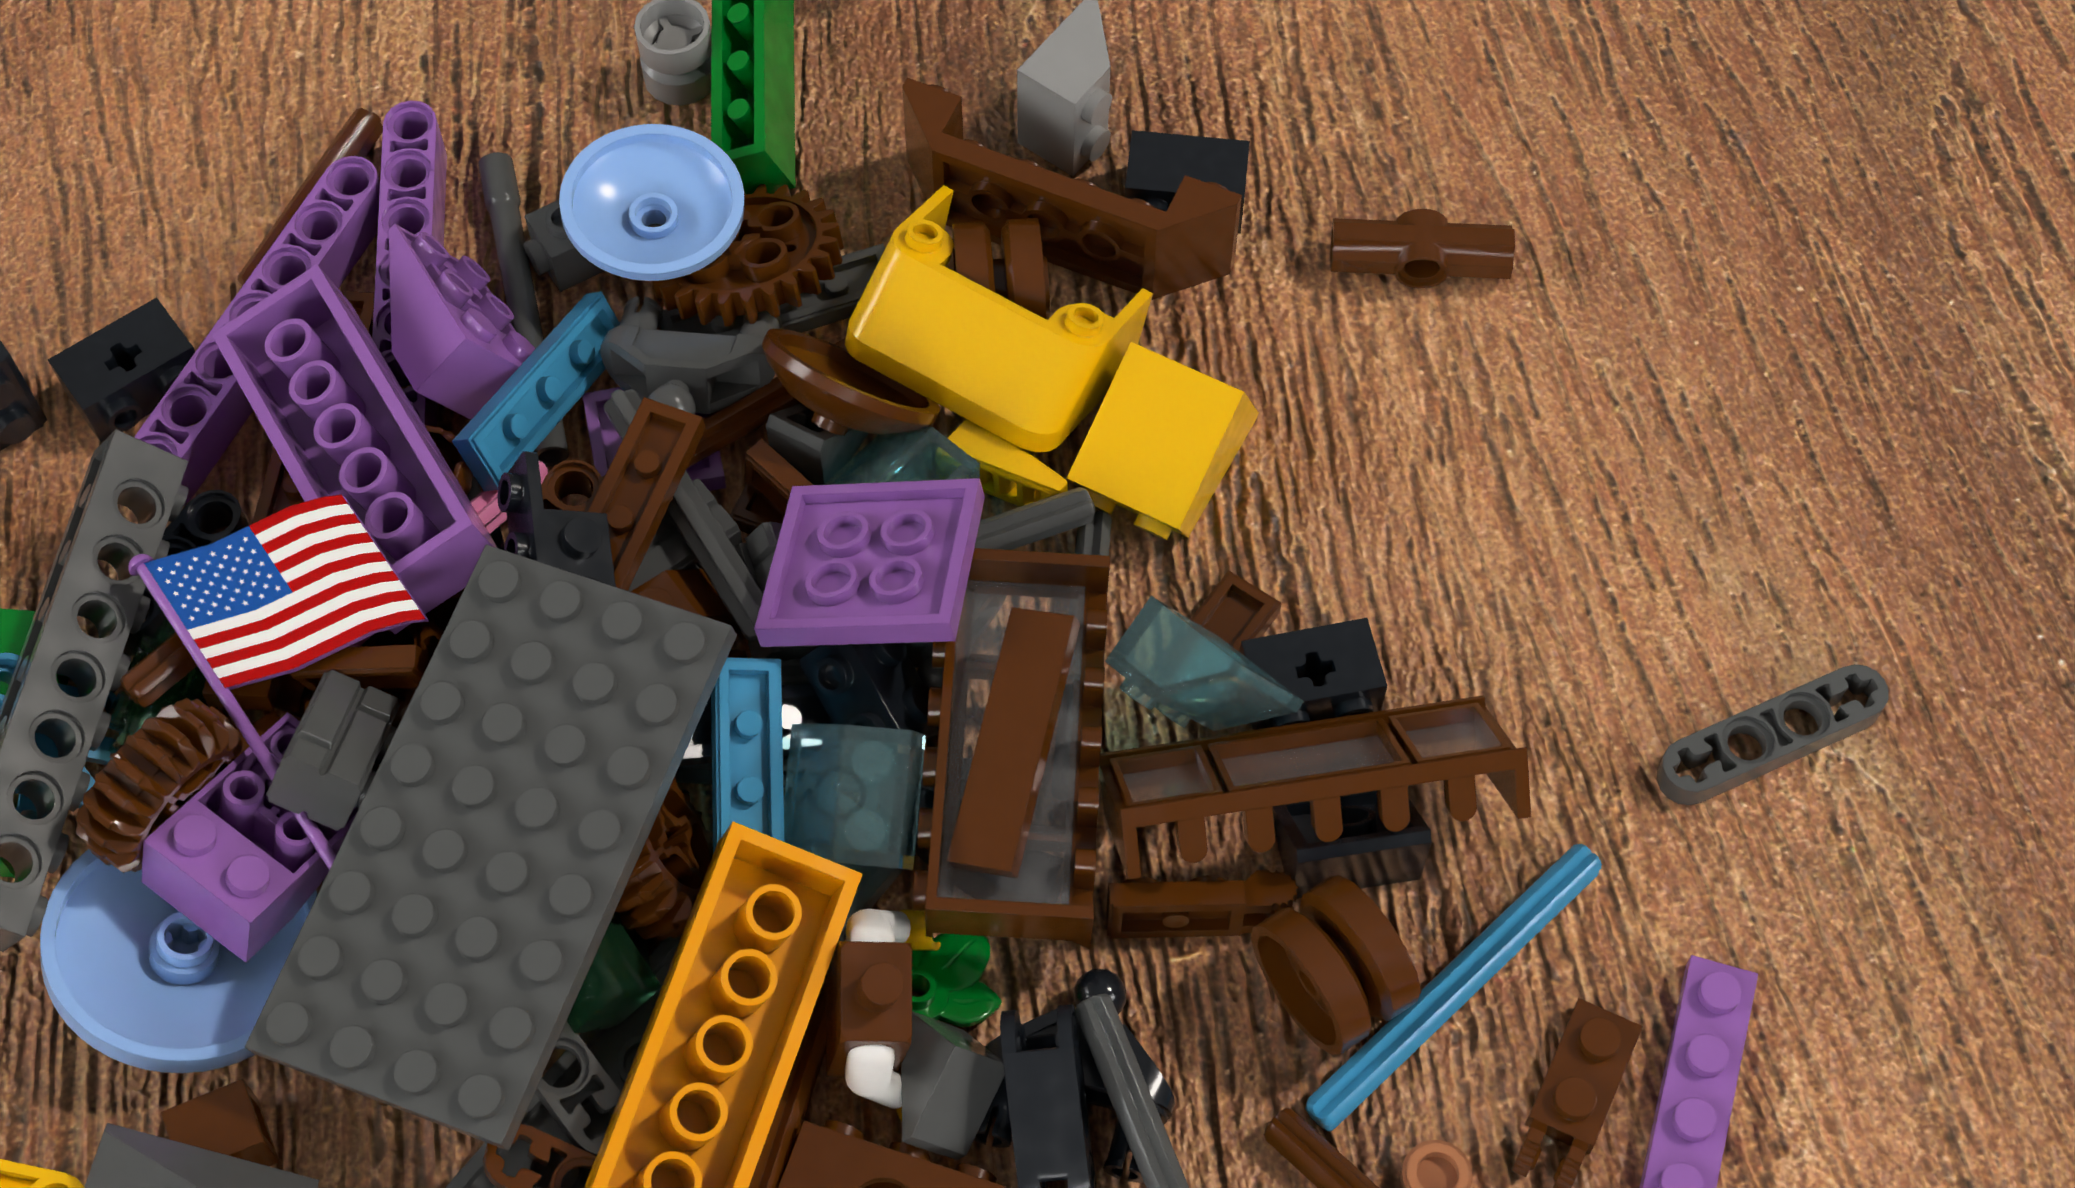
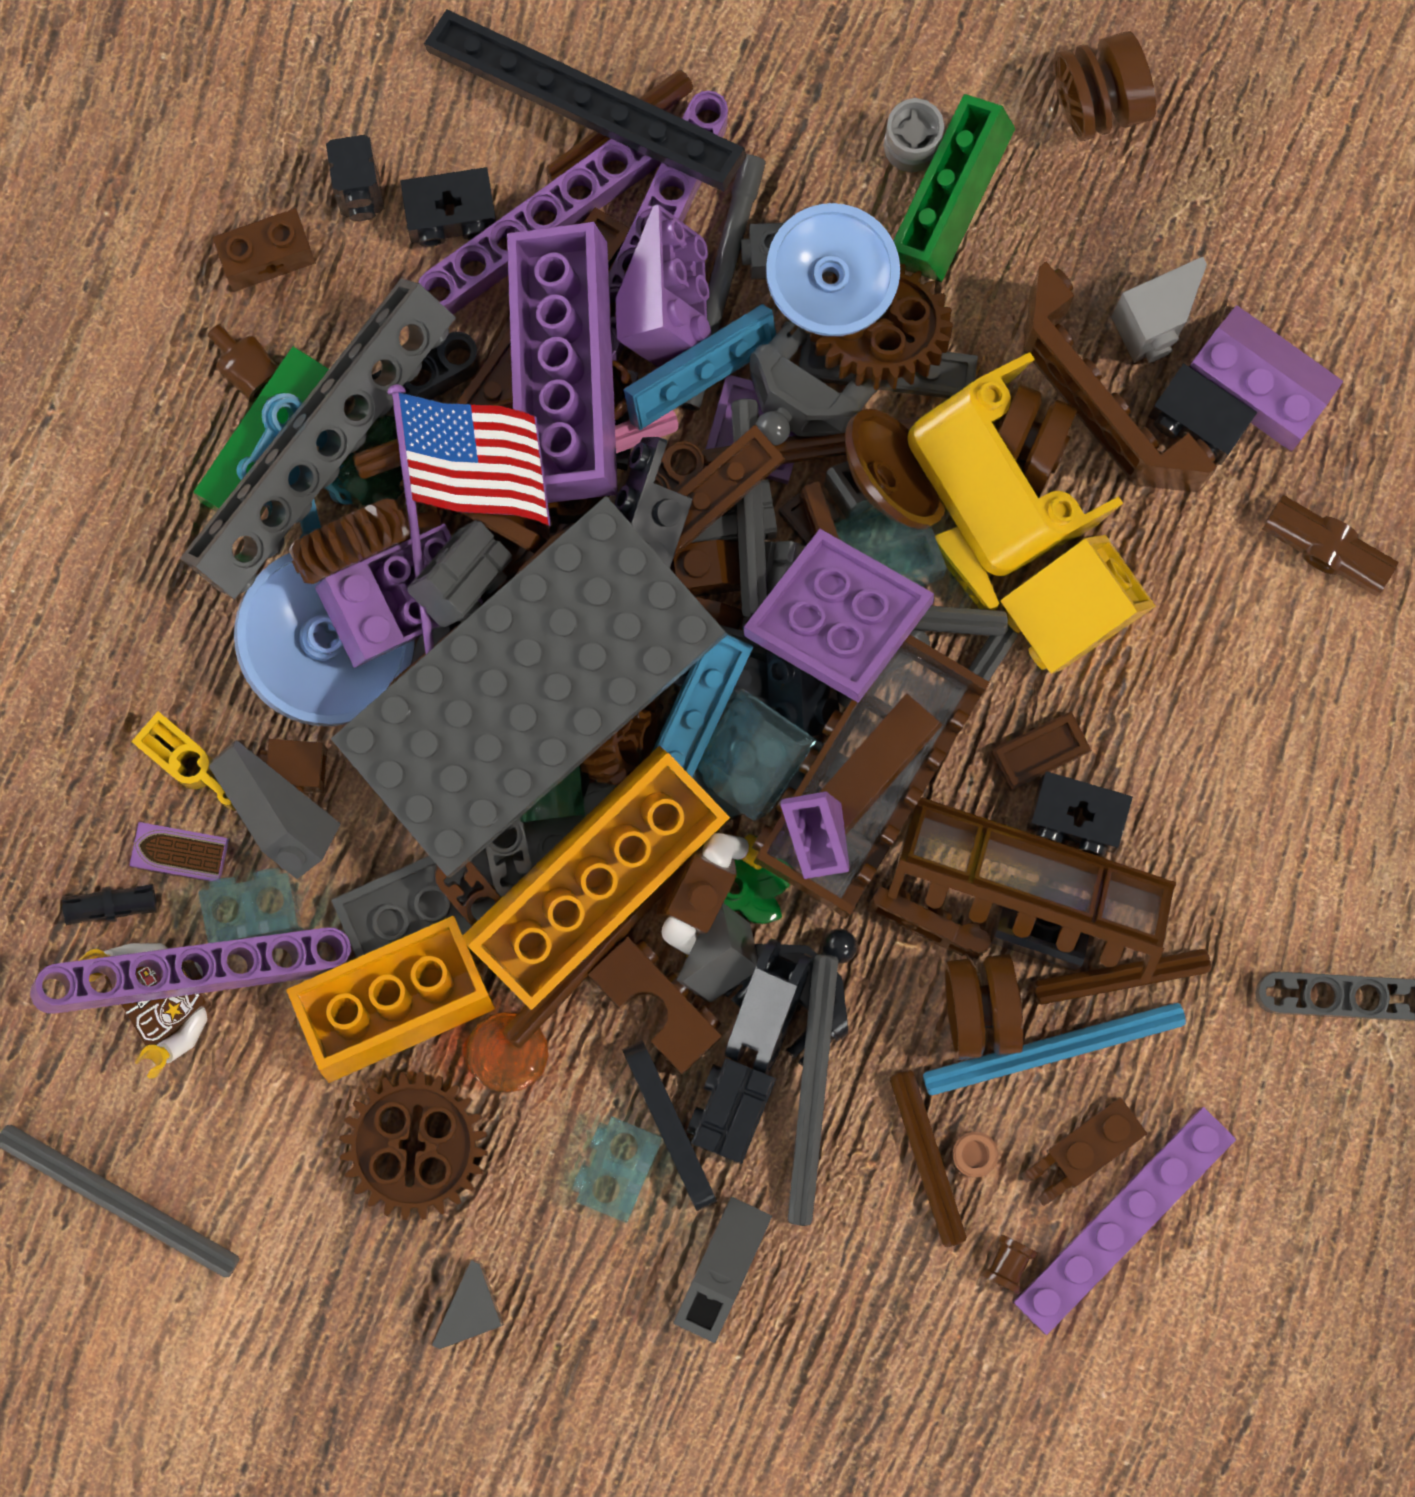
camera: 25 degrees right, 20 degrees up
(250, 171) = (586, 100): none -> black plate
(989, 827) = (817, 833): none -> medium lavender slope
(1194, 673) = (1003, 781): clear light blue slope -> none
(1273, 114) = (1267, 376): none -> medium lavender slope
(1485, 851) = (1120, 977): none -> reddish brown axle

